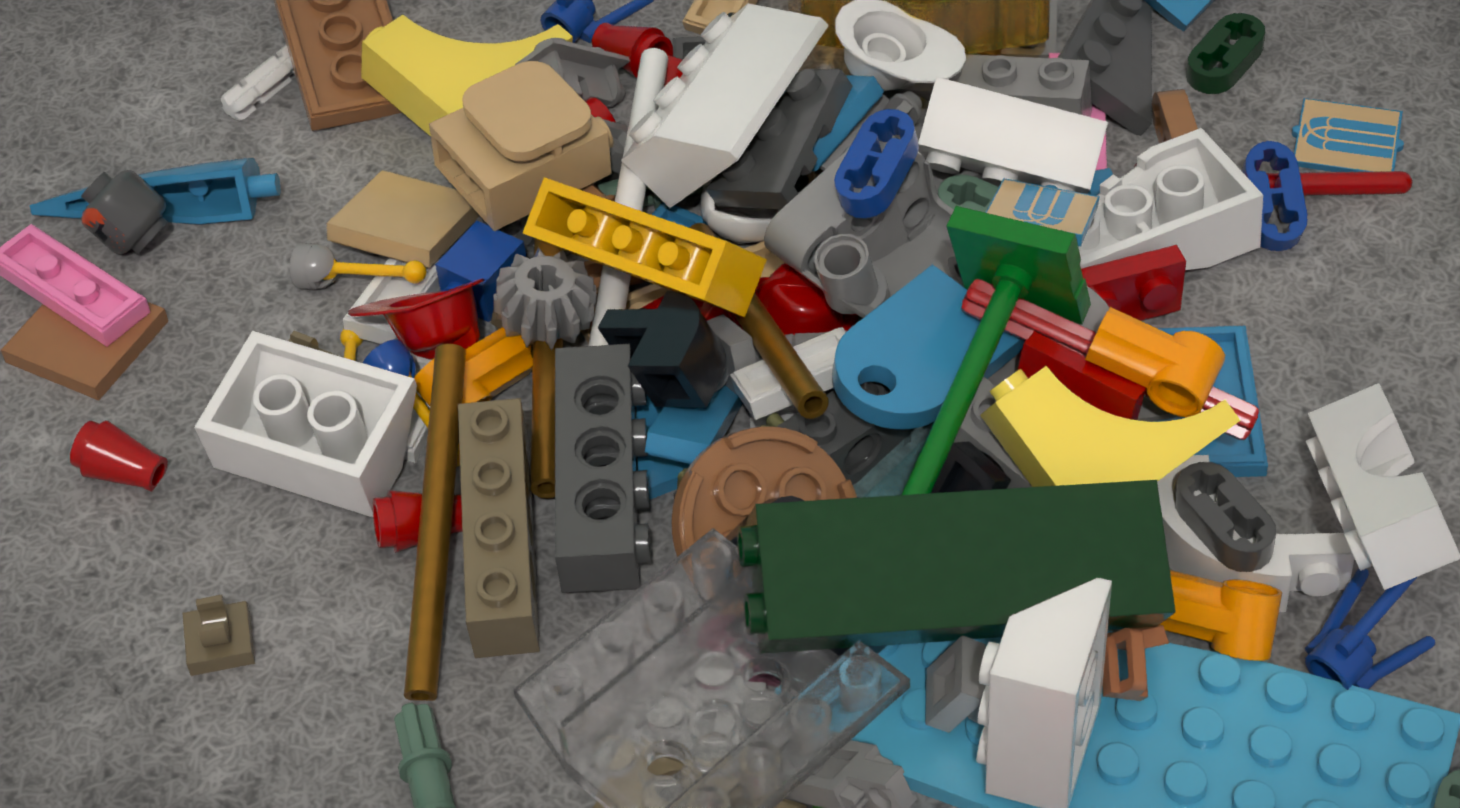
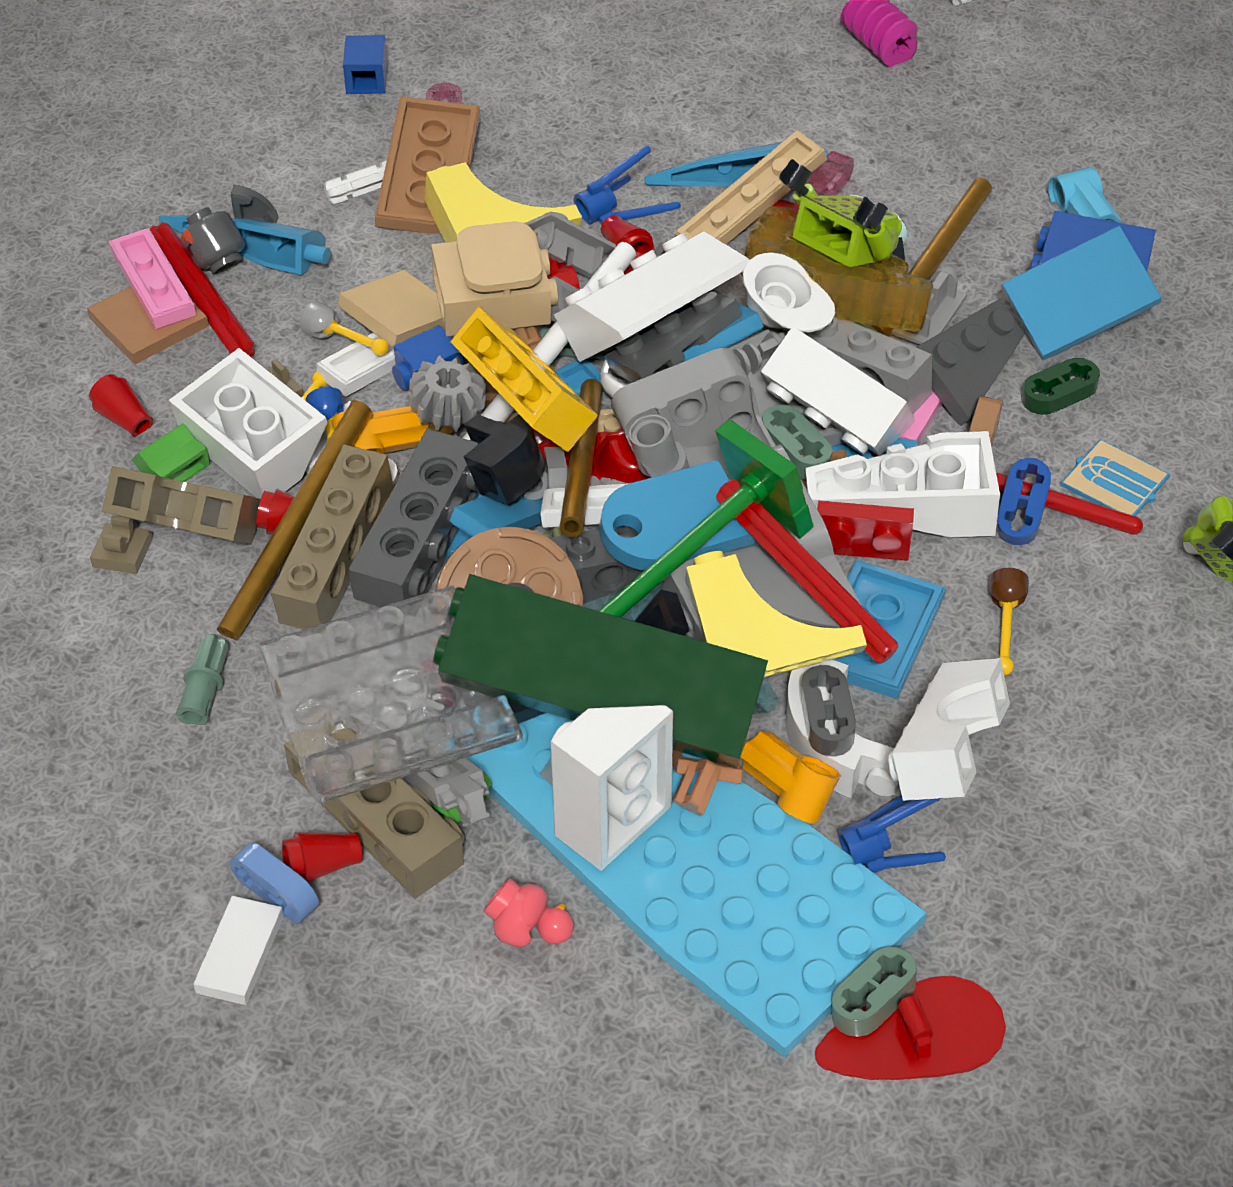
camera: 20 degrees right, 0 degrees up
(146, 153) = (252, 205): none -> dark grey tile
(179, 302) = (202, 291): none -> red axle
(222, 501) = (173, 456): none -> bright green piece
(277, 554) = (181, 505): none -> dark tan arch
(430, 318) = (369, 382): red piece -> none
(867, 160) = (706, 372): blue beam -> none
(1045, 206) = (823, 450): piece -> none
(1083, 378) = (773, 578): red tile -> none
(1172, 368) = (836, 590): light orange piece -> none
(1317, 305) = (1008, 591): none -> reddish brown hinge

